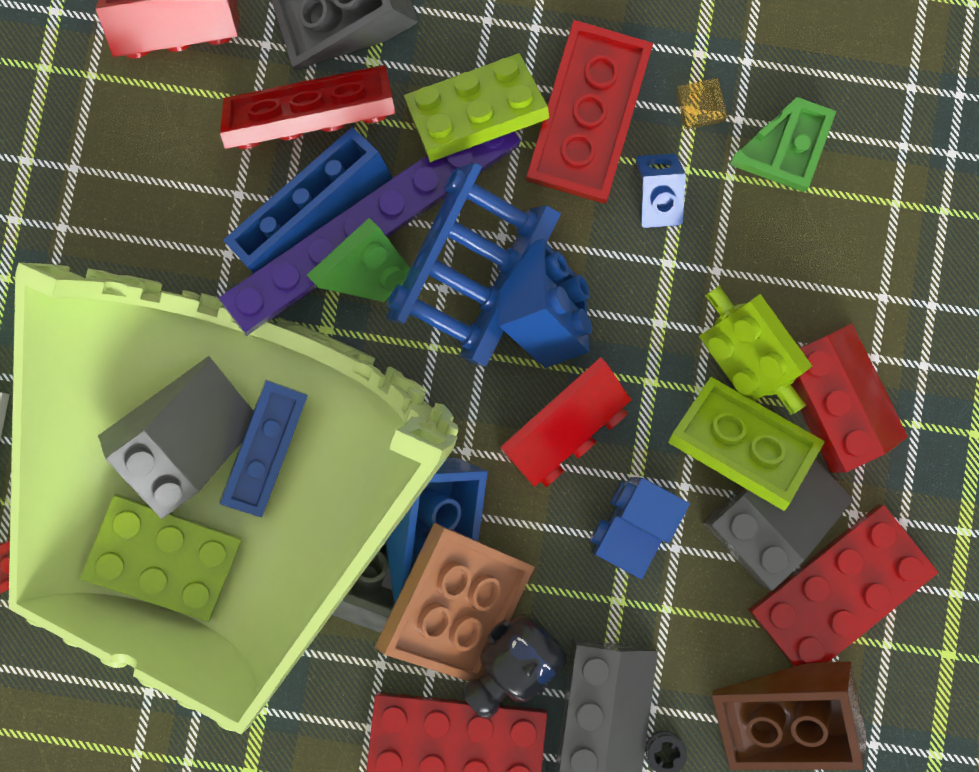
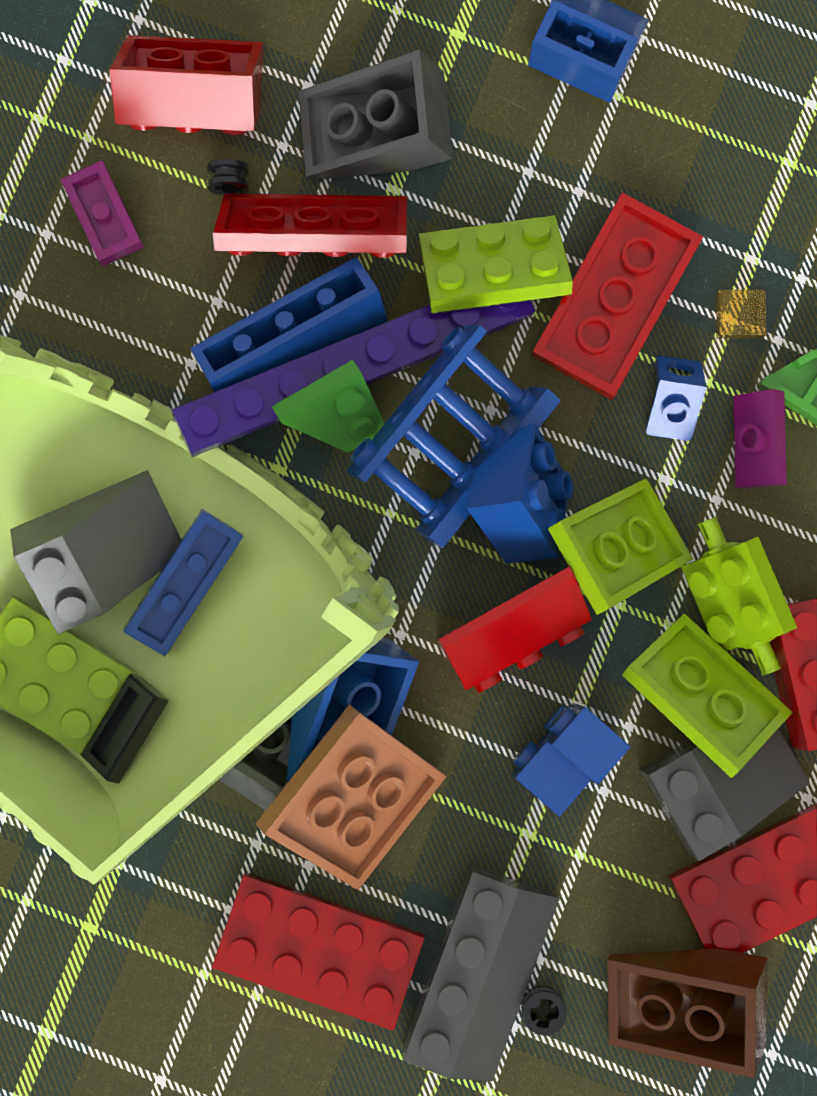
camera: 15 degrees right, 0 degrees up
(118, 138) = (102, 213): none -> magenta plate
(223, 82) = (227, 176): none -> black bush
(240, 589) = (124, 728): none -> black tile
(517, 664) = (405, 876): black piece -> none
(641, 329) = (620, 545): none -> lime plate
(742, 209) = (760, 439): none -> magenta plate

